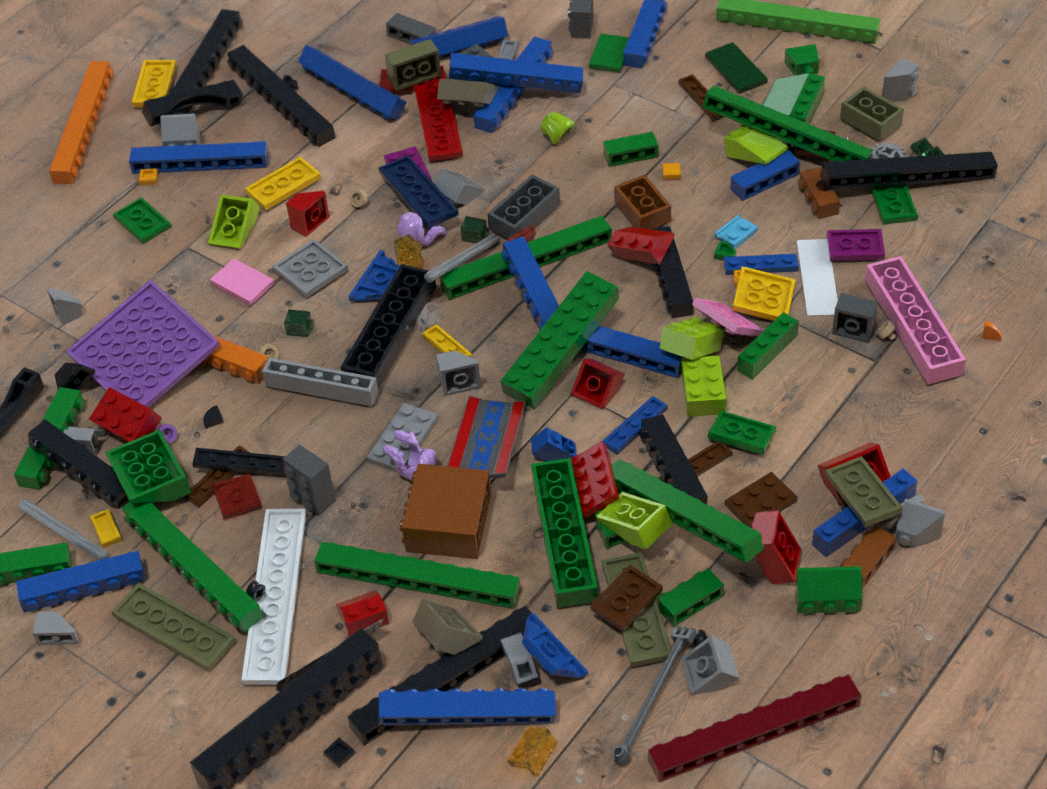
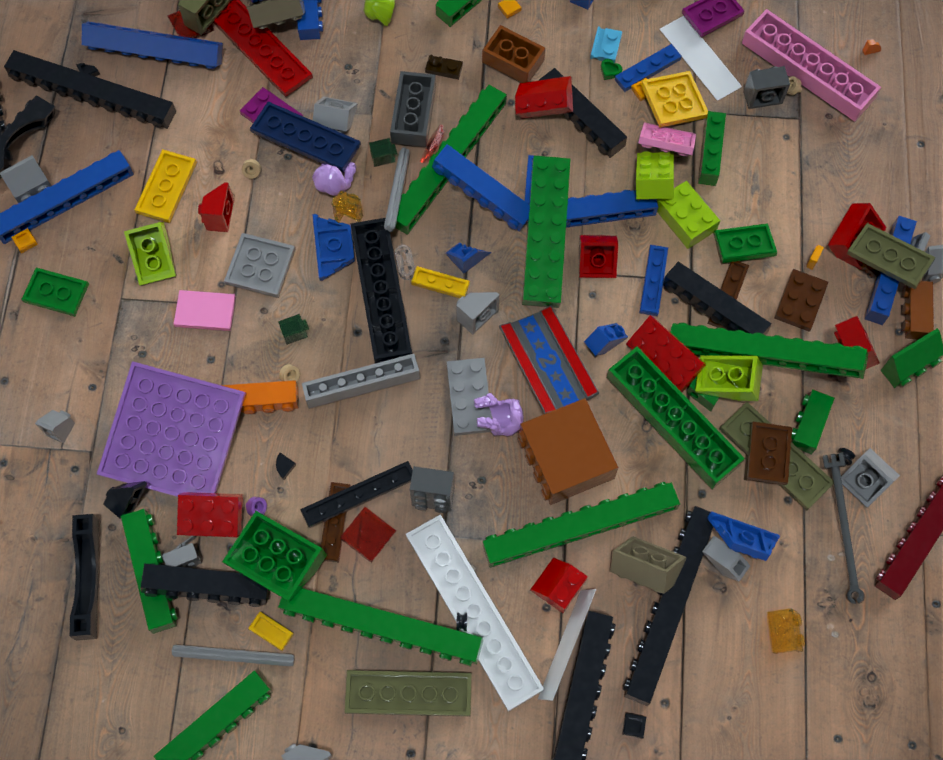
camera: 35 degrees left, 20 degrees up
(80, 581) = (292, 698): blue brick -> none
(466, 707) = (716, 629): blue brick -> none
(484, 337) = (466, 257): none -> blue slope
(578, 192) = (444, 67): none -> dark brown plate
(799, 470) = (814, 257): none -> light orange tile

